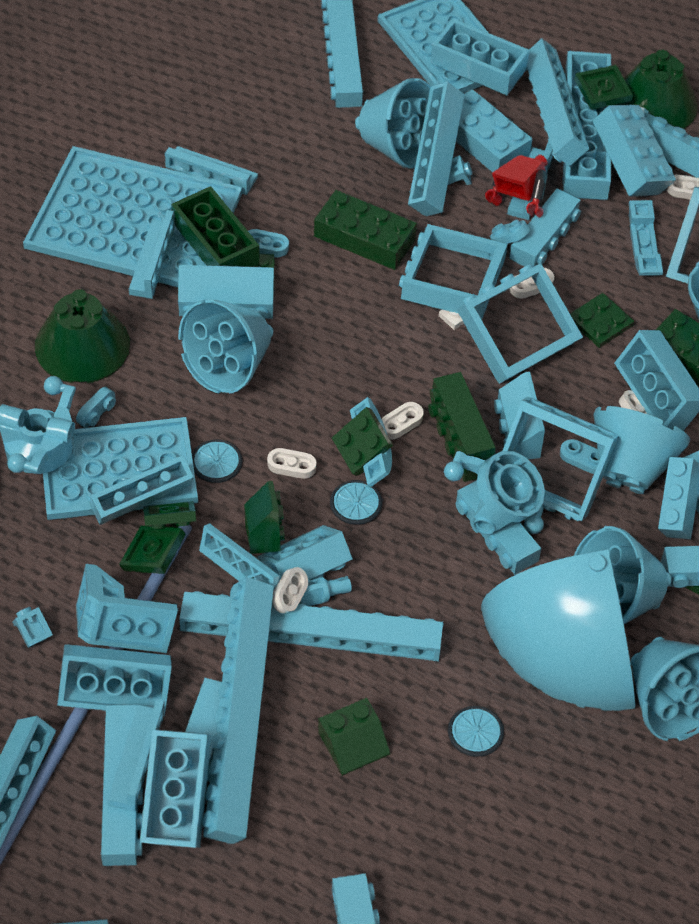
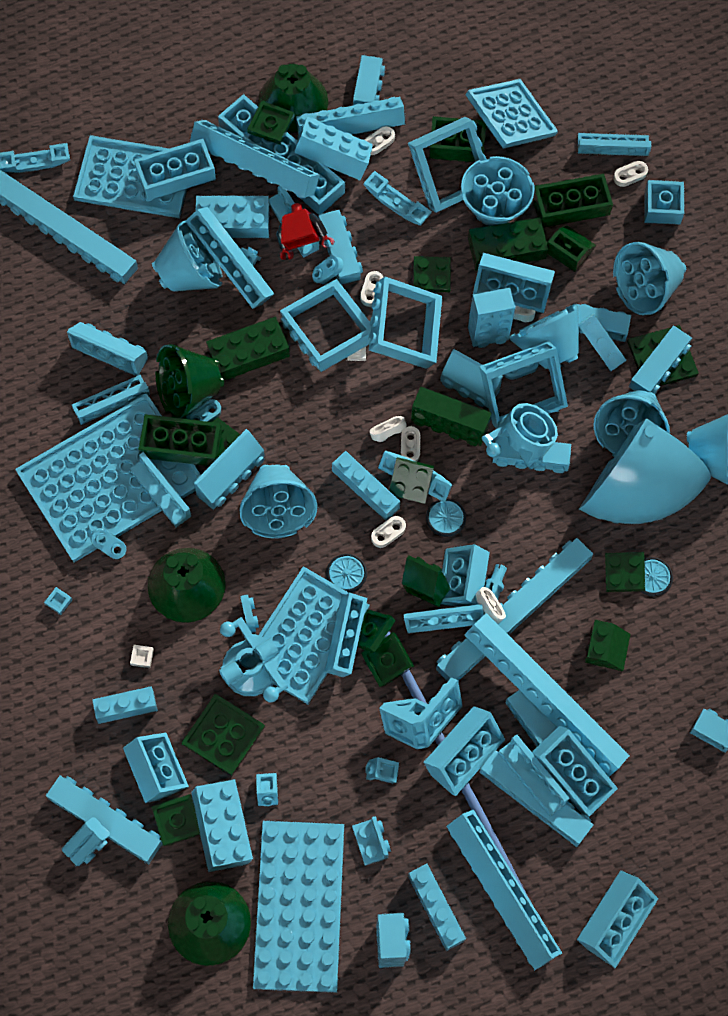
camera: 50 degrees left, 15 degrees up
(63, 255) = (108, 544): none -> medium azure plate
(257, 130) = (107, 348): none -> medium azure slope
(284, 201) = (186, 380): none -> dark green cone
(319, 410) = (366, 485): none -> medium azure brick
(390, 388) = (388, 428): none -> white plate
(453, 699) = (625, 572): none -> dark green plate
(595, 375) = (491, 317): none -> medium azure brick

